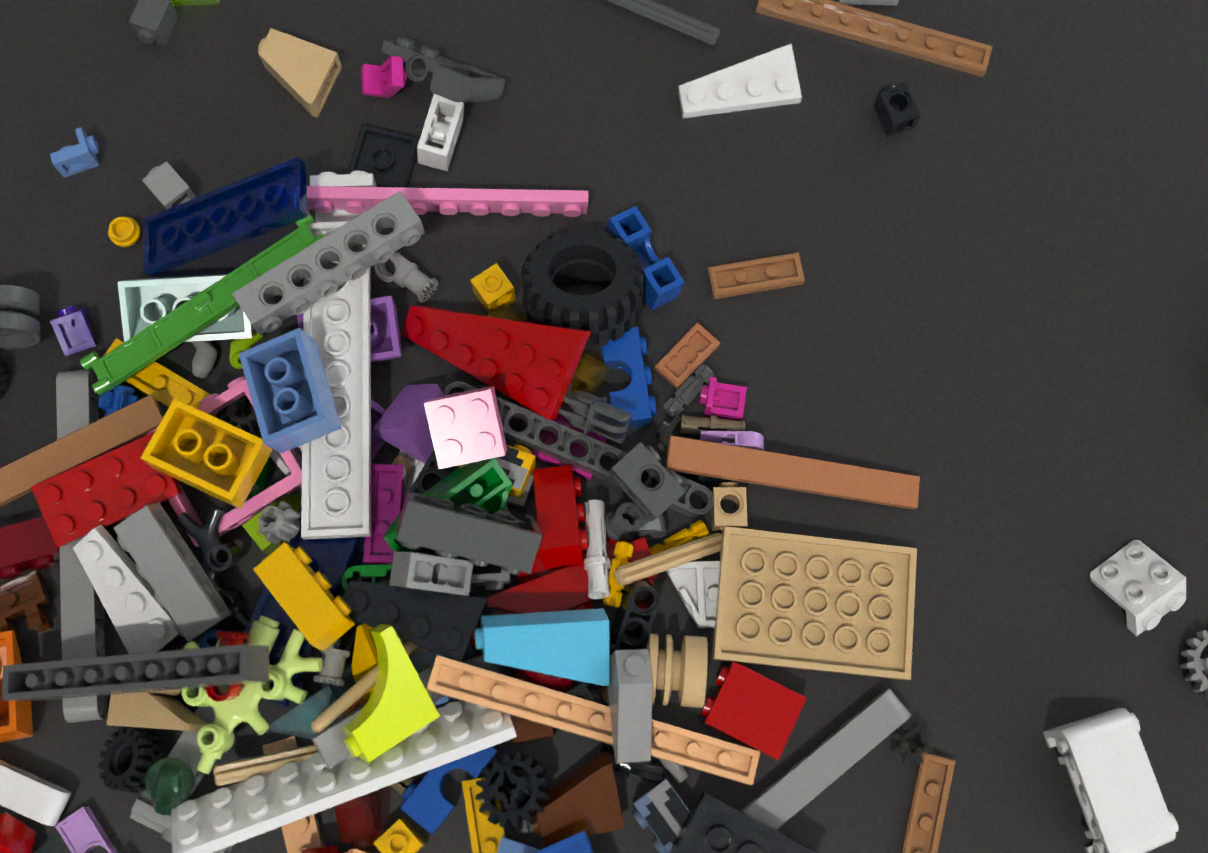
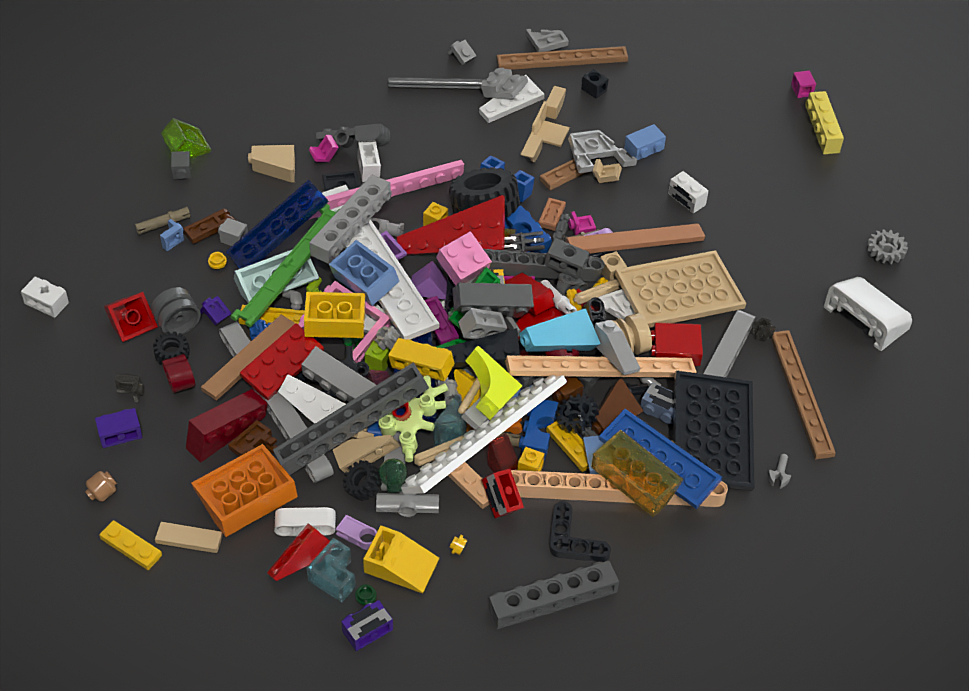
camera: 25 degrees left, 25 degrees down
(74, 118) = (162, 220): none -> dark tan pin
(141, 157) = (206, 226): none -> reddish brown plate
(246, 574) = (378, 376): none -> clear pink slope
(740, 54) = (503, 84): none -> light grey plate
(768, 173) = (546, 131): none -> tan piece
(820, 306) = (606, 173): none -> tan bracket
(826, 243) = (596, 145): none -> light grey wing
(918, 270) = (645, 142): none -> medium blue brick
(935, 406) = (688, 192): none -> white brick
(1141, 585) = (832, 225): white bracket -> none

